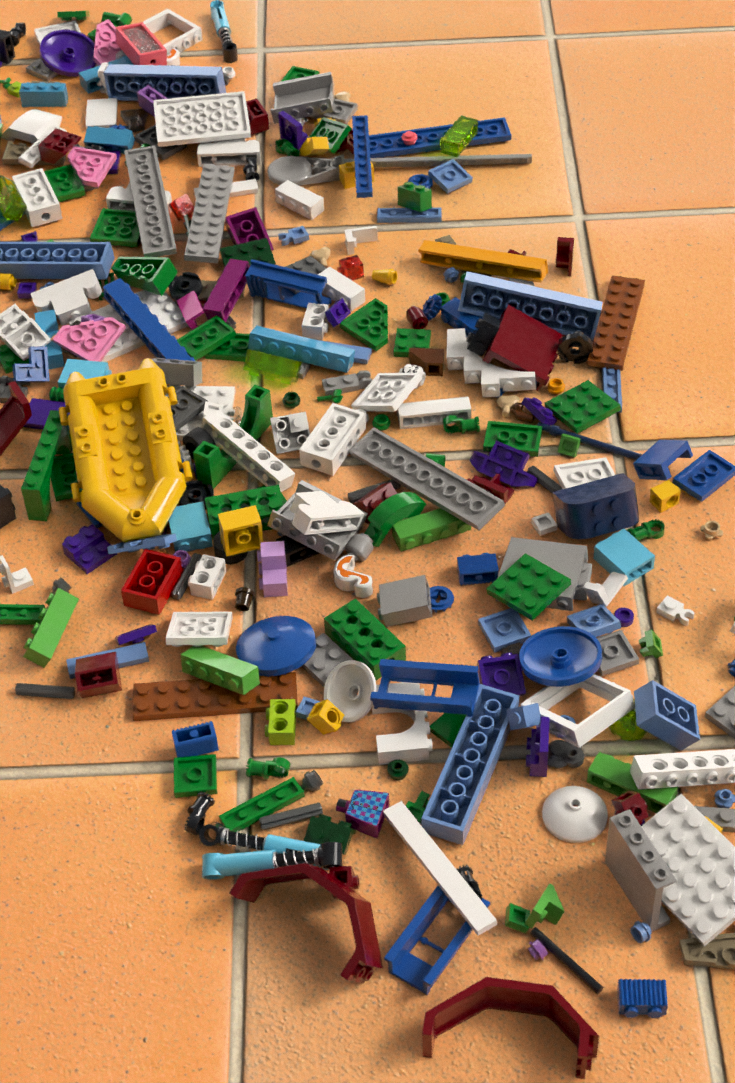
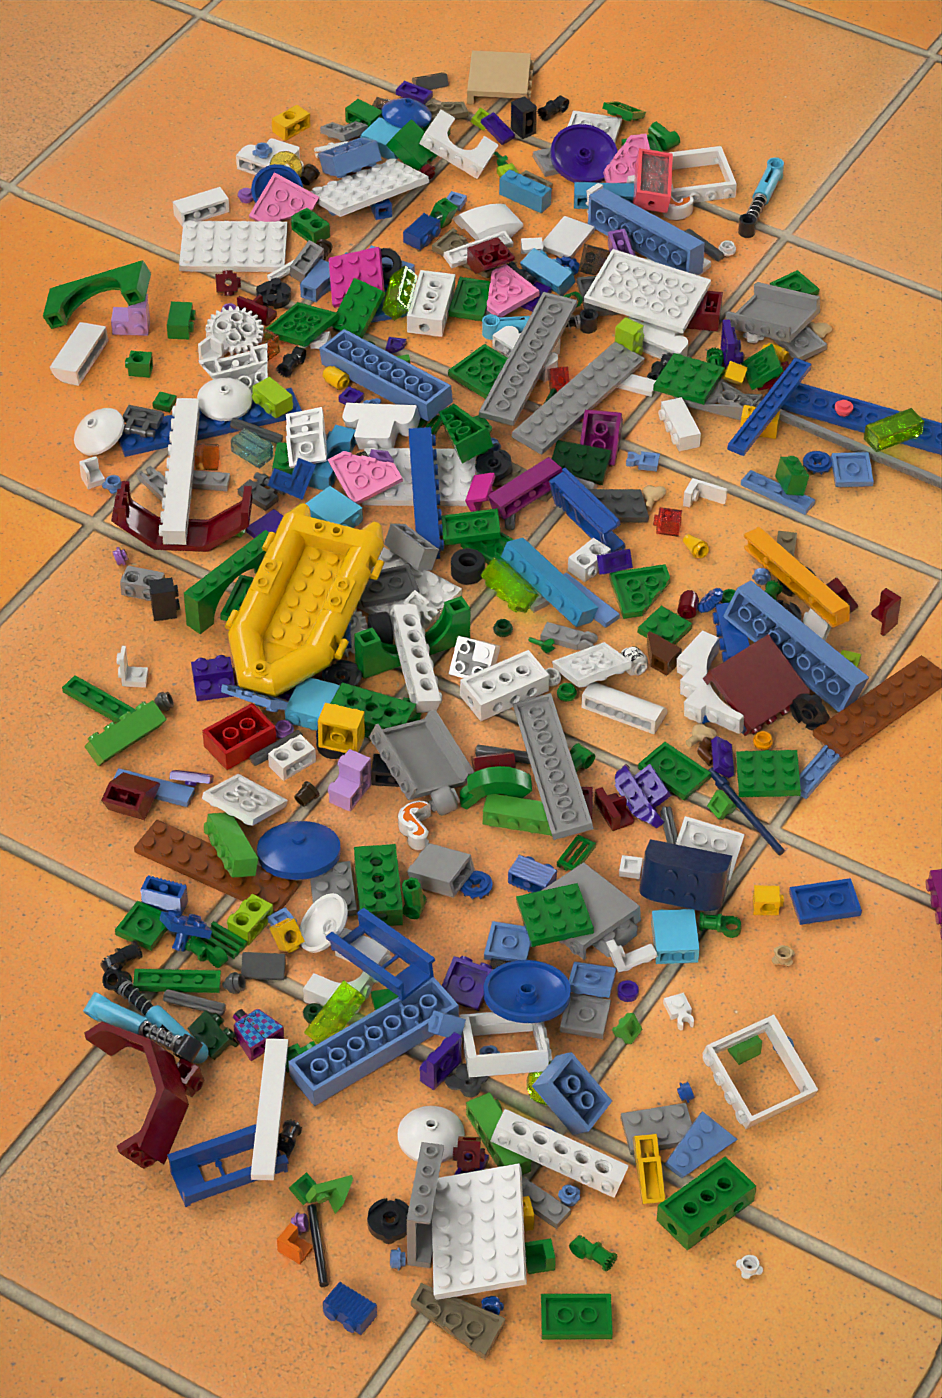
camera: 30 degrees right, 0 degrees up
(45, 690) = (81, 786): dark grey axle -> none
(80, 127) = (528, 244): none -> white panel
(99, 192) = (585, 321): none -> piece
(213, 153) = (630, 335): none -> lime brick
(226, 368) = (467, 566): none -> black tyre
(236, 756) = (184, 926): none -> blue plate
(272, 749) = (227, 938): none -> green tile
(281, 165) = (688, 378): none -> green plate
(320, 514) = (424, 750): white brick -> none
(323, 754) = (263, 966): none -> dark grey slope
(341, 287) = (640, 538): white brick -> none
(404, 632) = (413, 898): none -> green piece
(425, 759) = (335, 1013): none -> clear neon green brick
(461, 425) = (637, 732): green connector -> none
(483, 334) = (724, 649): black brick -> none
(493, 547) = (569, 865): none -> green tile
(513, 997) = (221, 1230): dark red panel -> none
(549, 973) = (292, 1246): none -> orange panel
(604, 914) = (388, 1231): none -> black plate
(656, 459) = (791, 859): blue panel -> none

